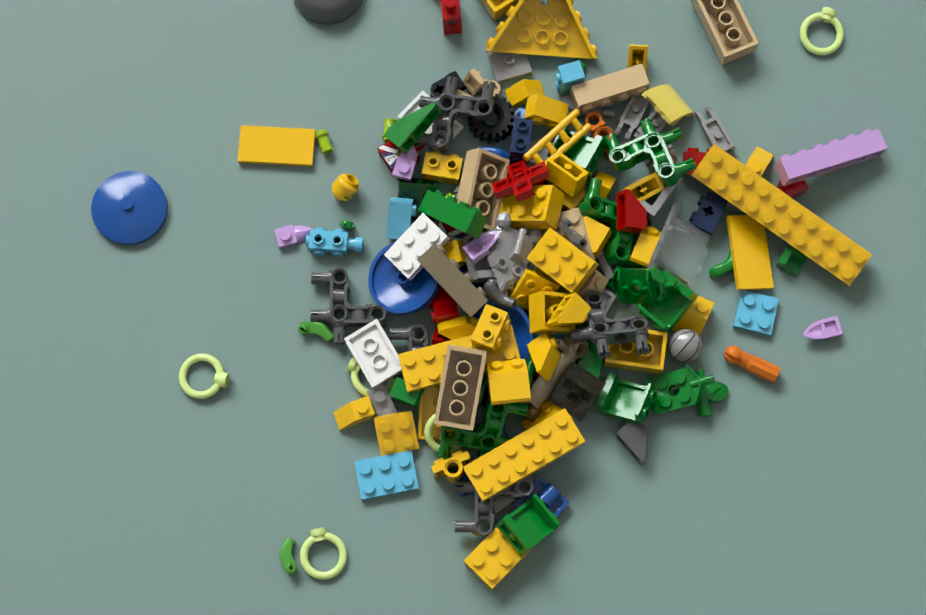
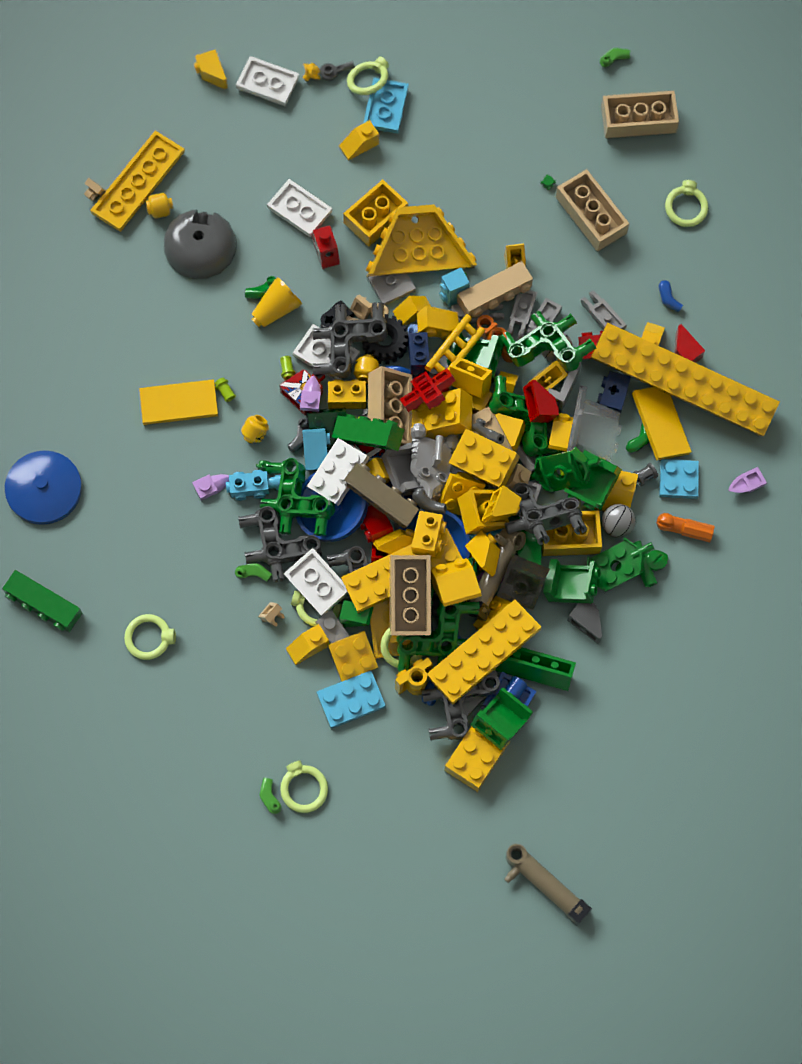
camera: 15 degrees left, 5 degrees down
(106, 321) = (42, 601): none -> green brick
(324, 375) = (270, 612): none -> tan tile
(367, 257) = (290, 491): none -> green pin
(381, 47) = (259, 291): none -> green arm
(382, 209) = (297, 442): none -> dark grey arm
(389, 63) = (275, 304): none -> yellow cone
(410, 128) = (309, 359): green slope -> none
(465, 142) = (364, 366): none -> yellow head
(480, 247) = (400, 461): lavender plate -> none
(577, 480) = (539, 668): none -> green brick
(668, 103) = (553, 295): light yellow slope -> none
(723, 302) = (646, 474): none -> dark grey bush
(782, 124) = (666, 296): none -> blue arm
(791, 261) = (702, 423): green panel -> none
(830, 157) = (719, 318): lavender brick -> none

